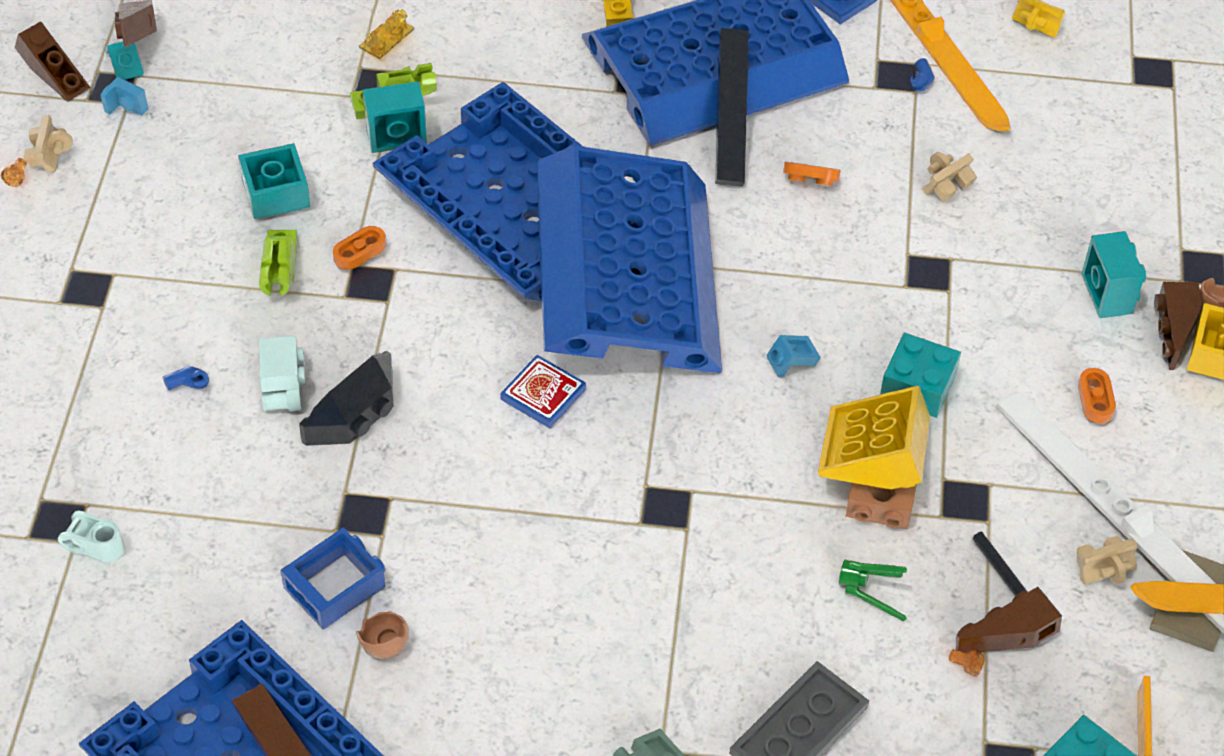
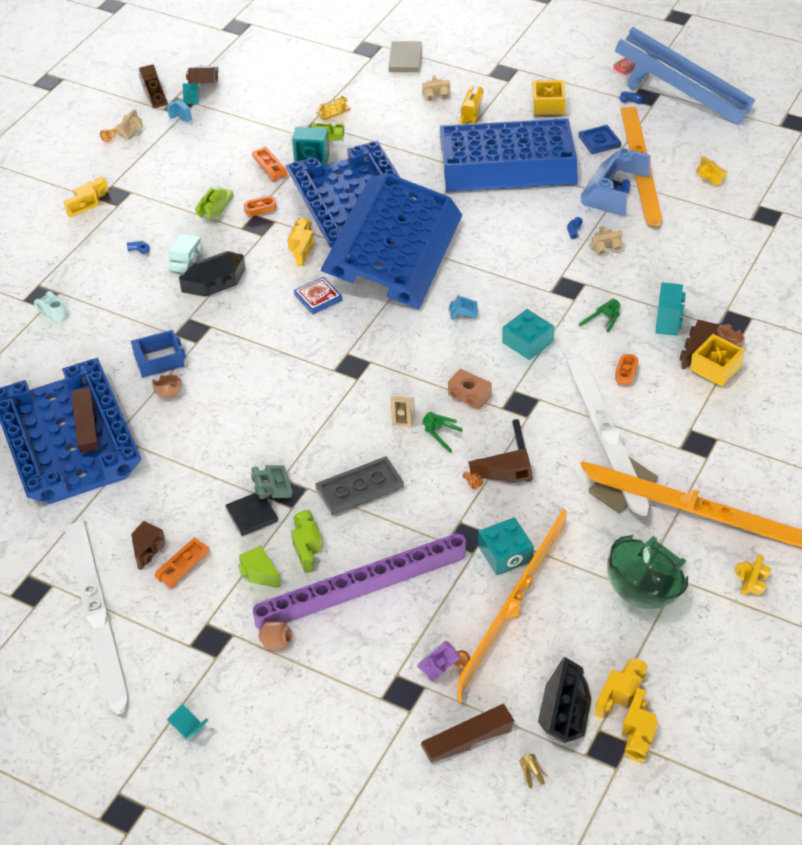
camera: 25 degrees right, 5 degrees down
(42, 304) = (86, 196): none -> yellow plate
(274, 181) = (231, 164): teal brick -> none
(333, 163) = (269, 163): none -> orange plate
(463, 295) = (301, 240): none -> yellow plate
(731, 107) = (496, 178): black tile -> none
(800, 568) = (402, 410): none -> tan slope
(823, 175) = (521, 220): orange plate -> none
(877, 440) = (482, 358): yellow slope -> none
(883, 161) = (573, 226): none -> blue arm
(898, 91) = (600, 191): none -> medium blue windscreen
(1016, 296) = (609, 309): none -> green plant
(1110, 561) = (581, 450): tan hips -> none

